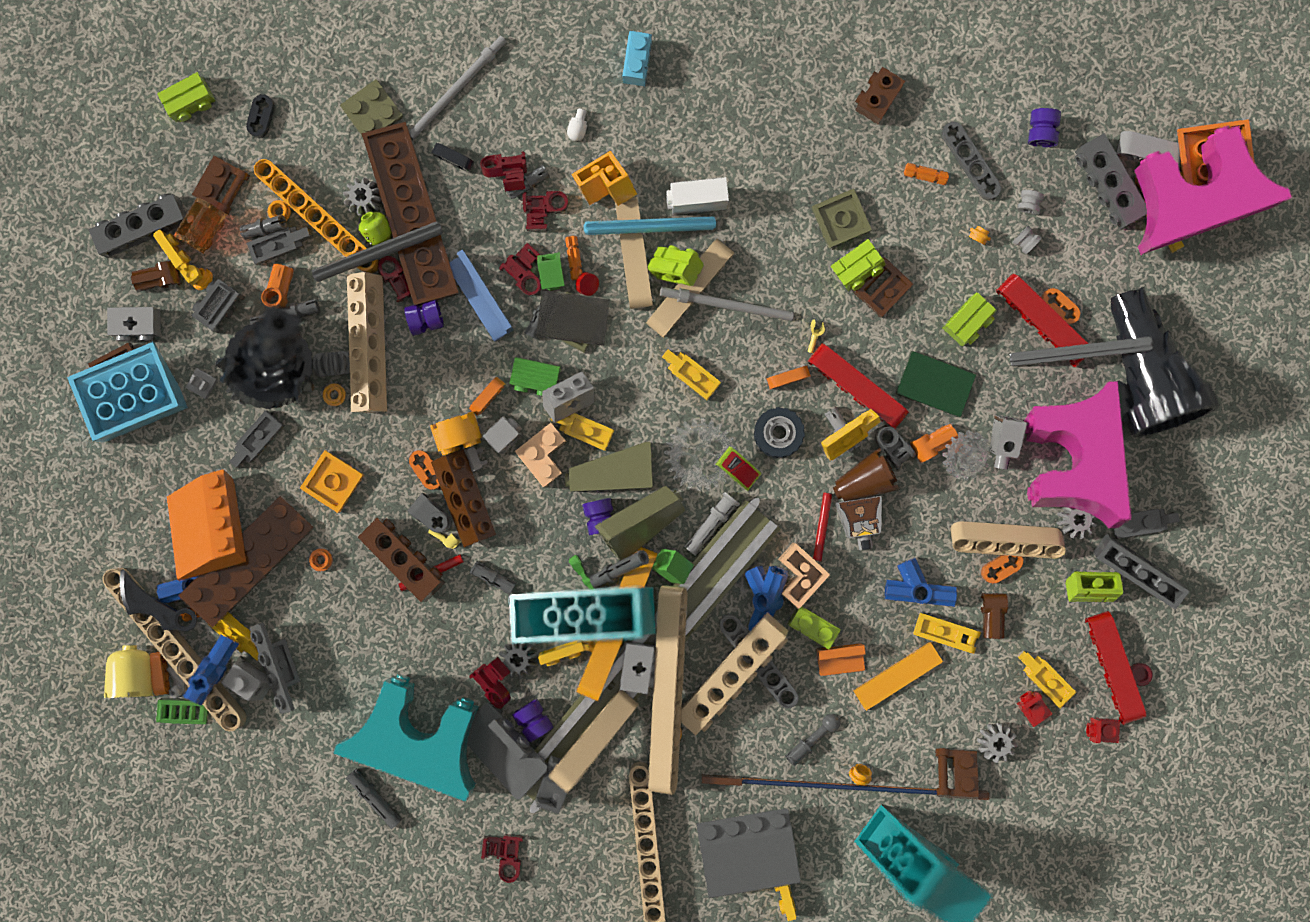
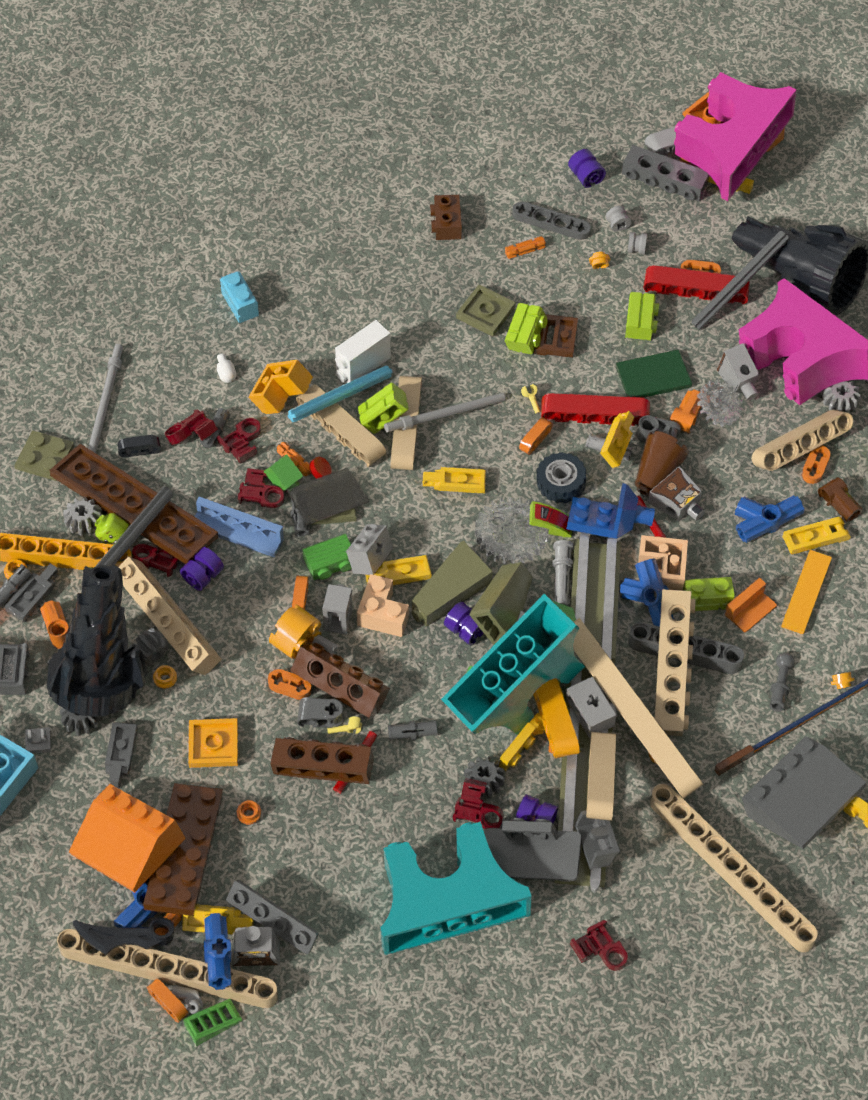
camera: 40 degrees left, 30 degrees down
(128, 672) = (141, 1014): light yellow cylinder -> none
(373, 798) = (415, 972): dark grey pin -> none
(786, 499) = (609, 519): none -> blue plate

